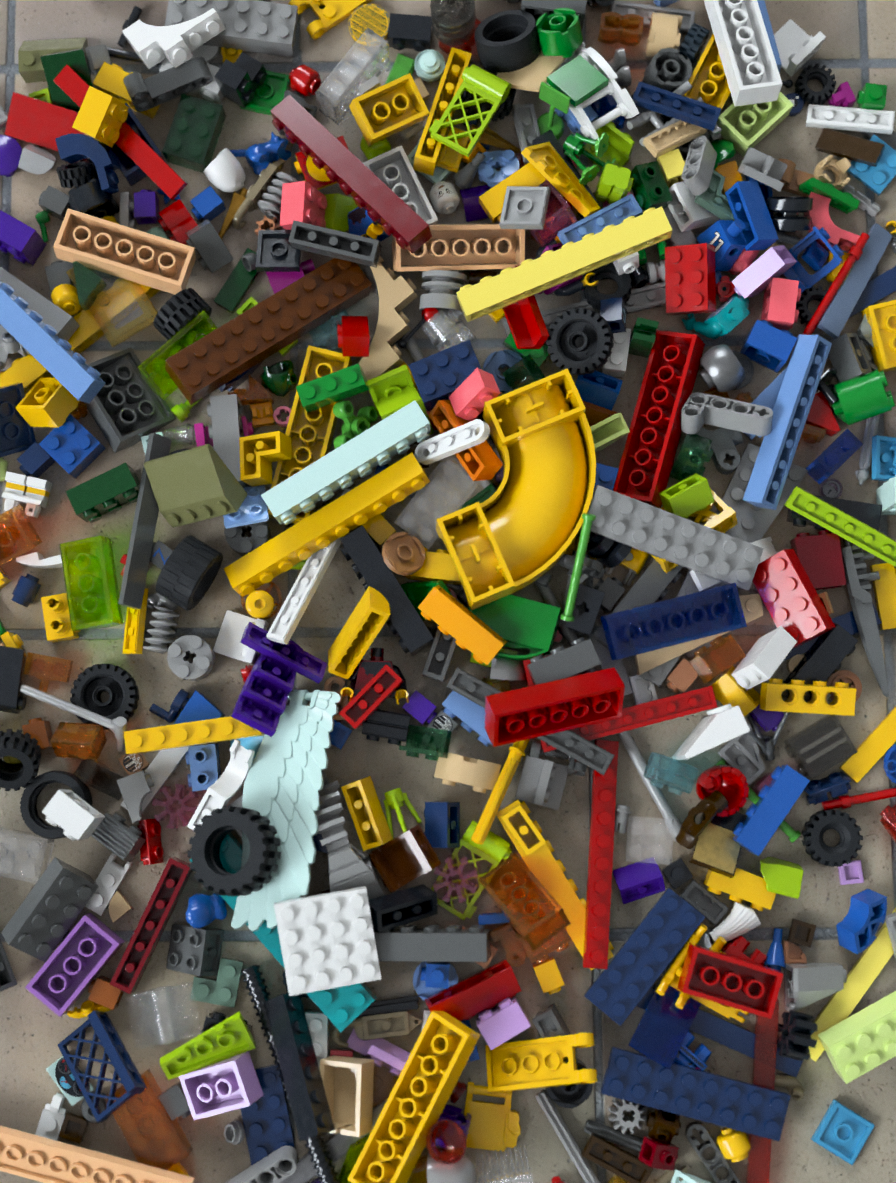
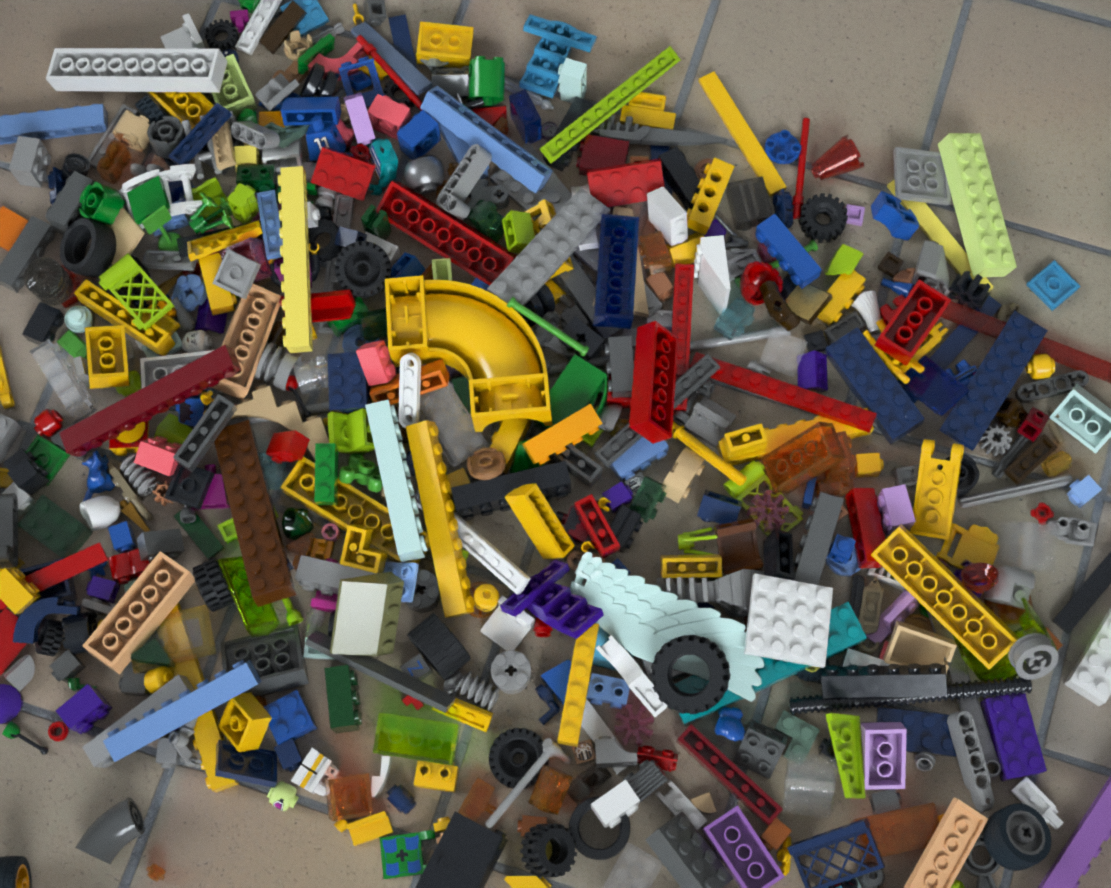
camera: 70 degrees left, 10 degrees down
(370, 17) = (18, 357): tile -> none

